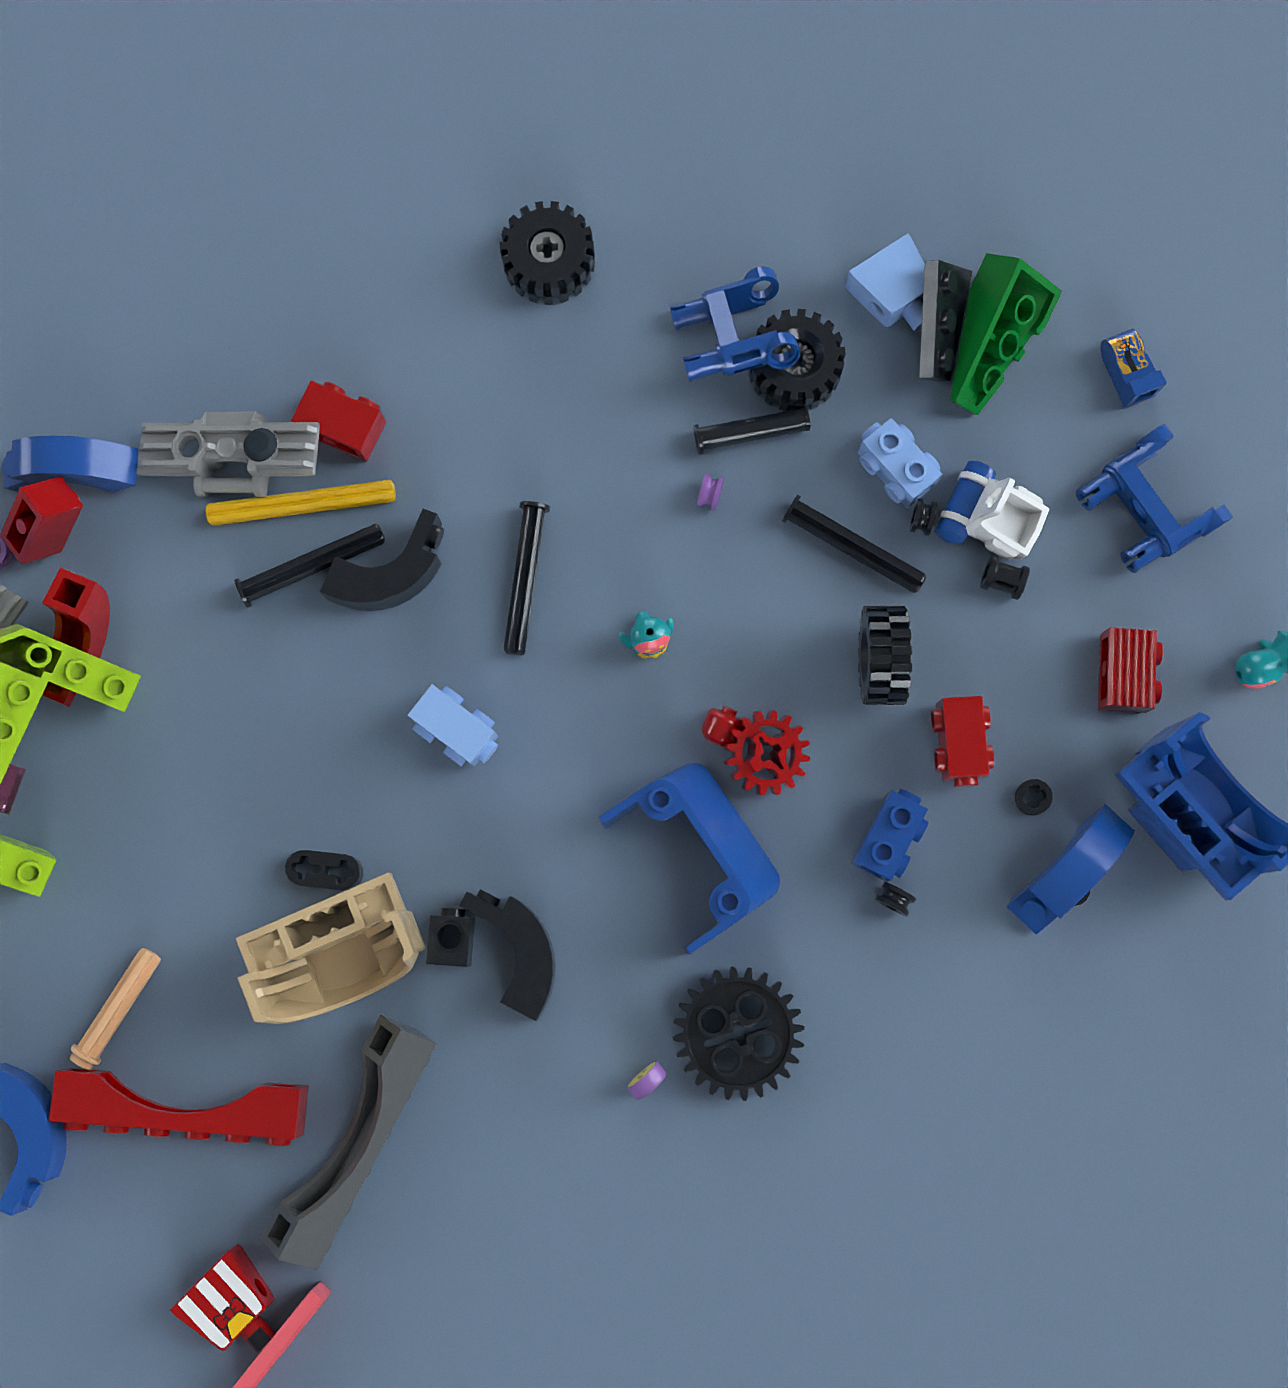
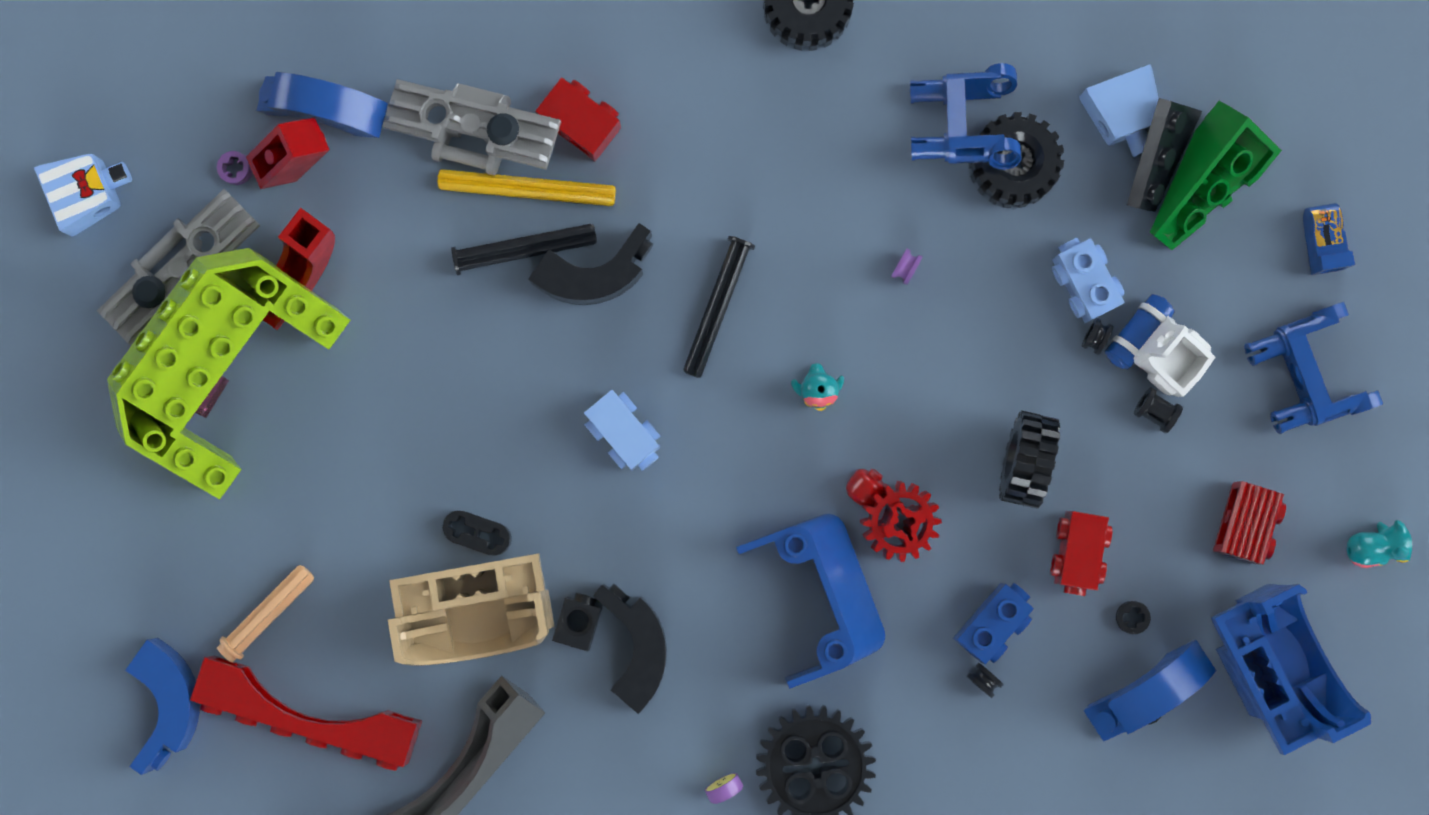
camera: 10 degrees right, 5 degrees up
(751, 429) = (958, 215): black pin -> none
(854, 545) = (1027, 348): black axle -> none

